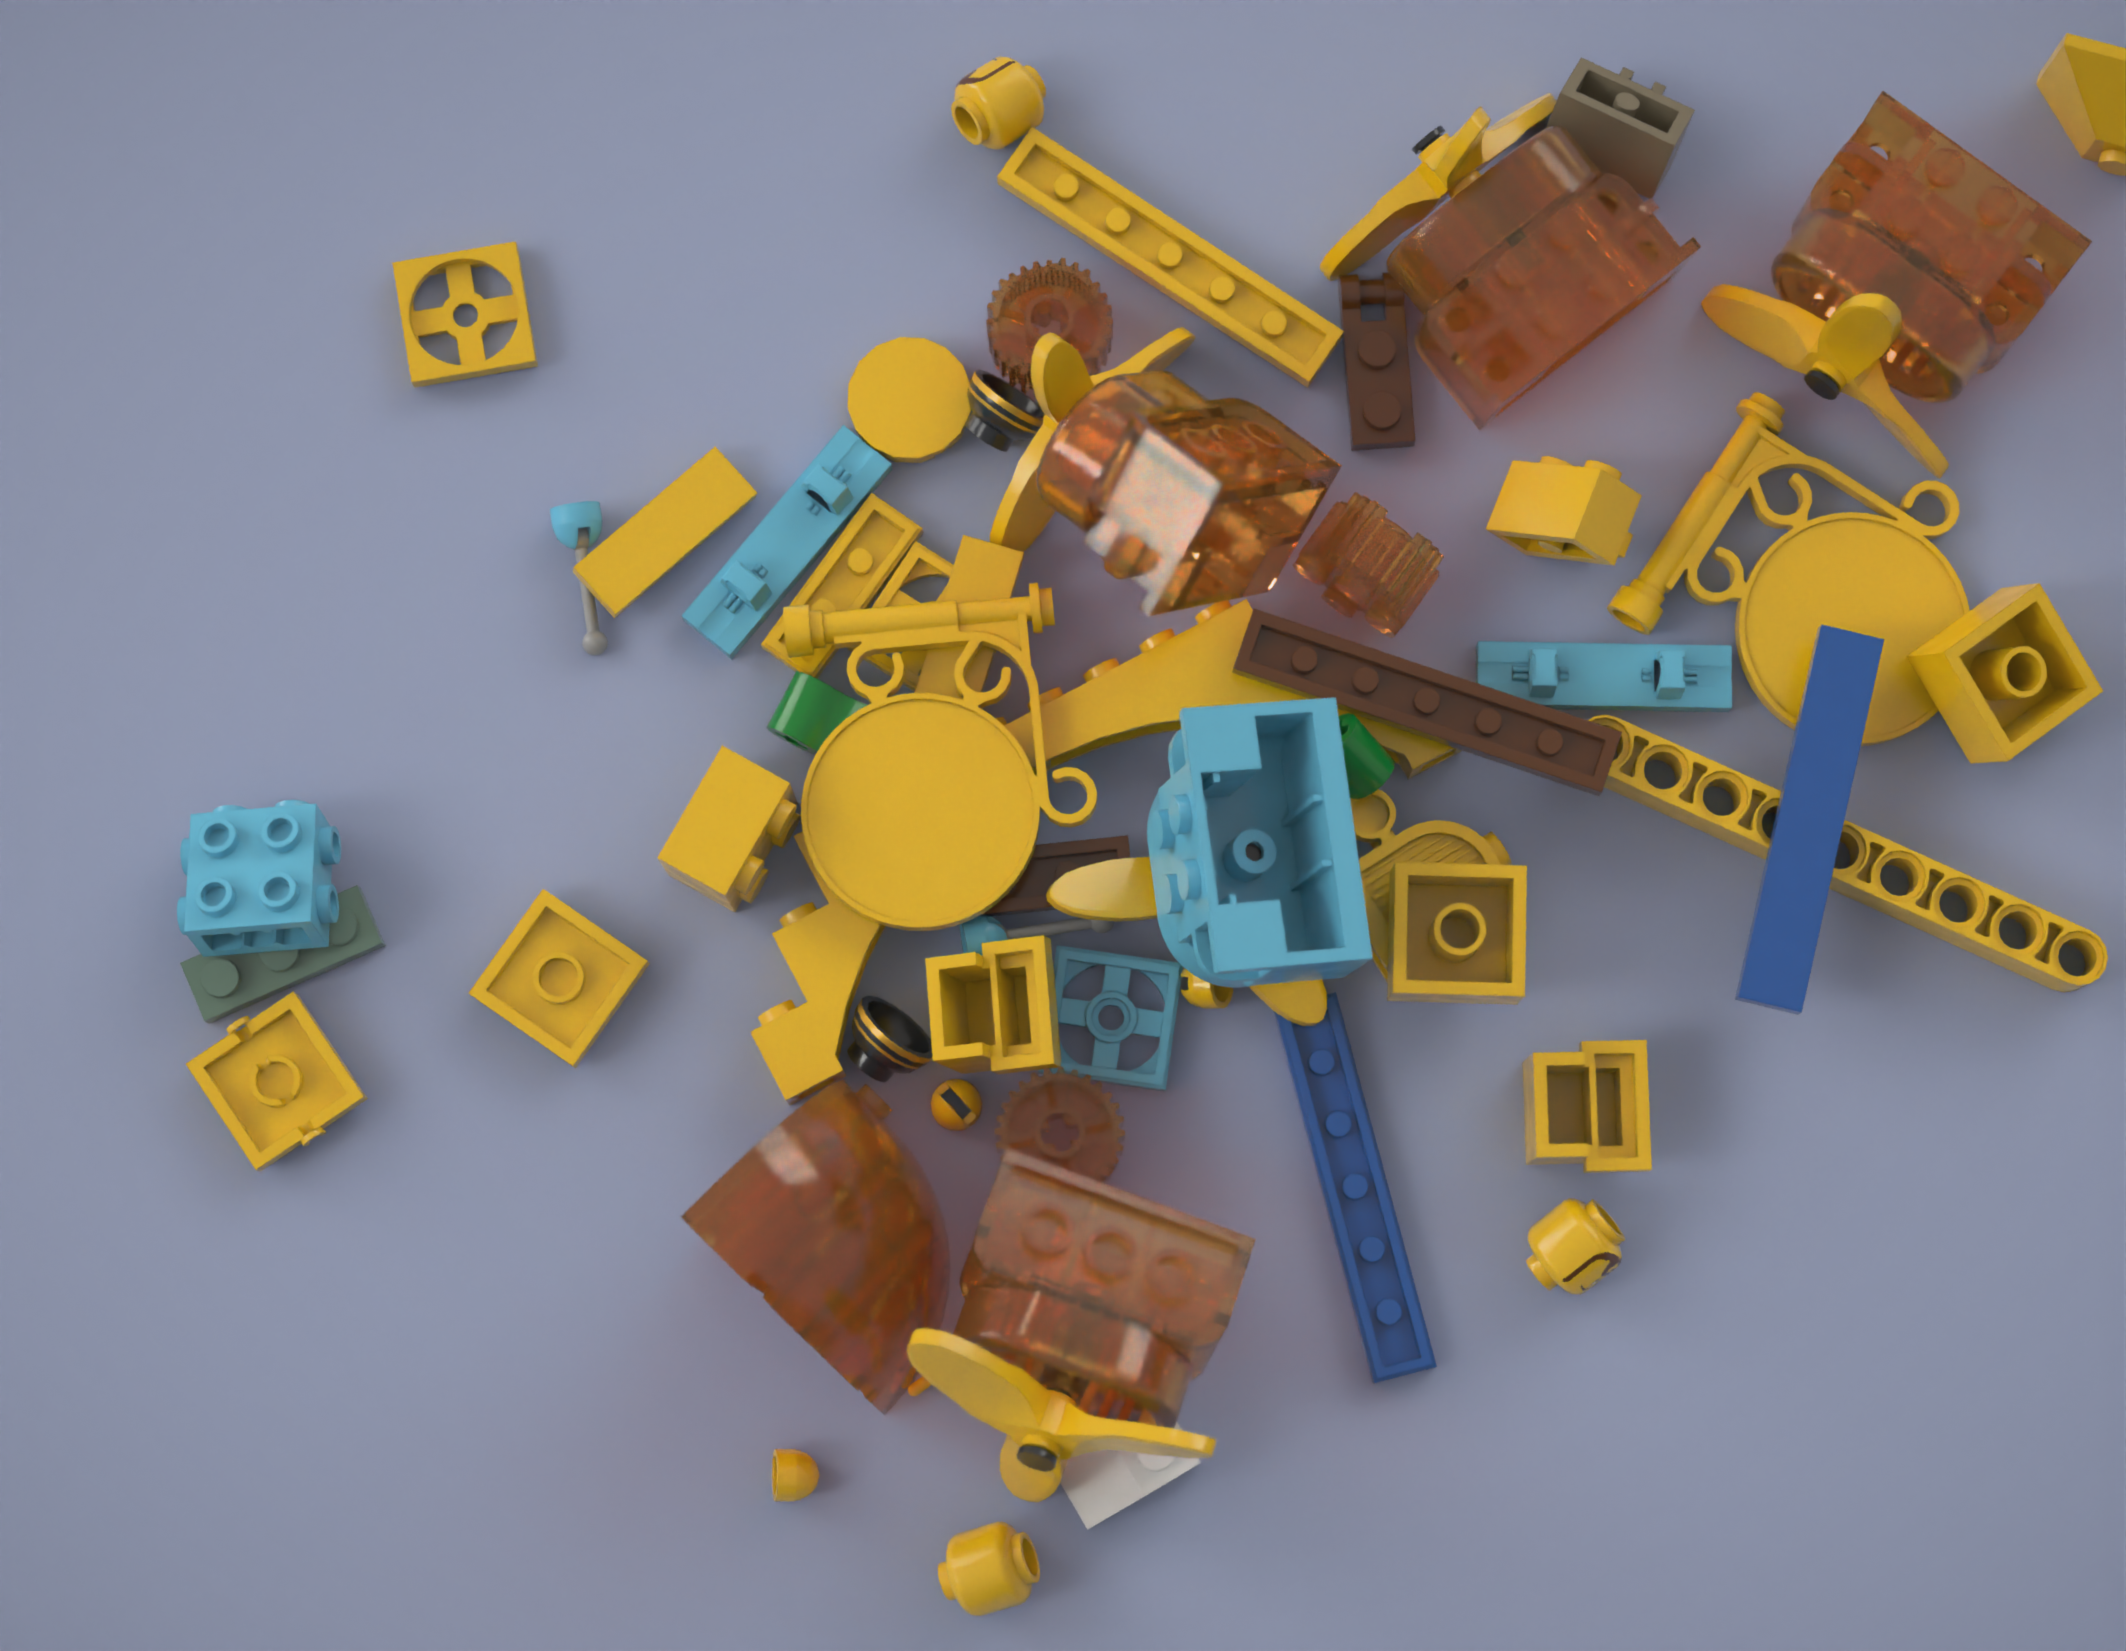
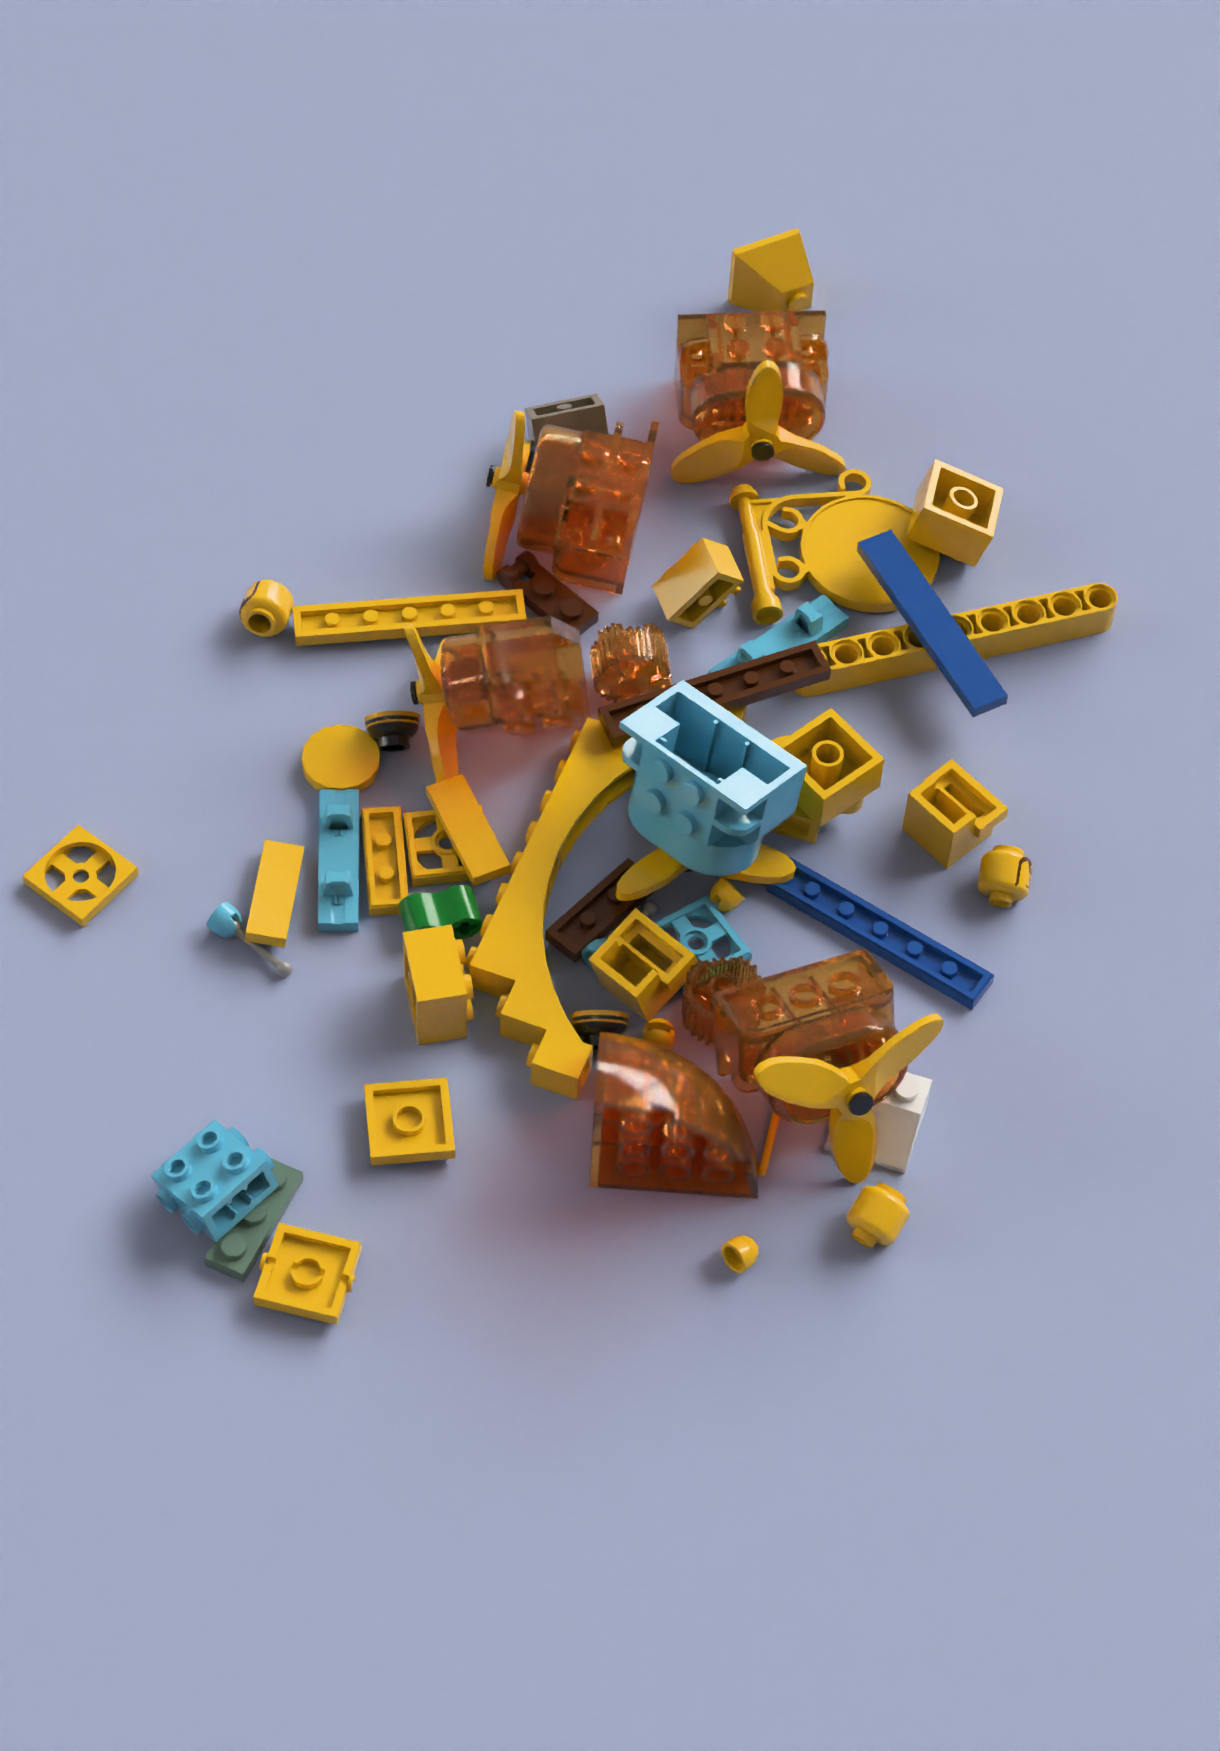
camera: 45 degrees left, 25 degrees down
(925, 798) = (516, 901): yellow piece -> none
(1038, 298) = (380, 675): clear orange brick -> none

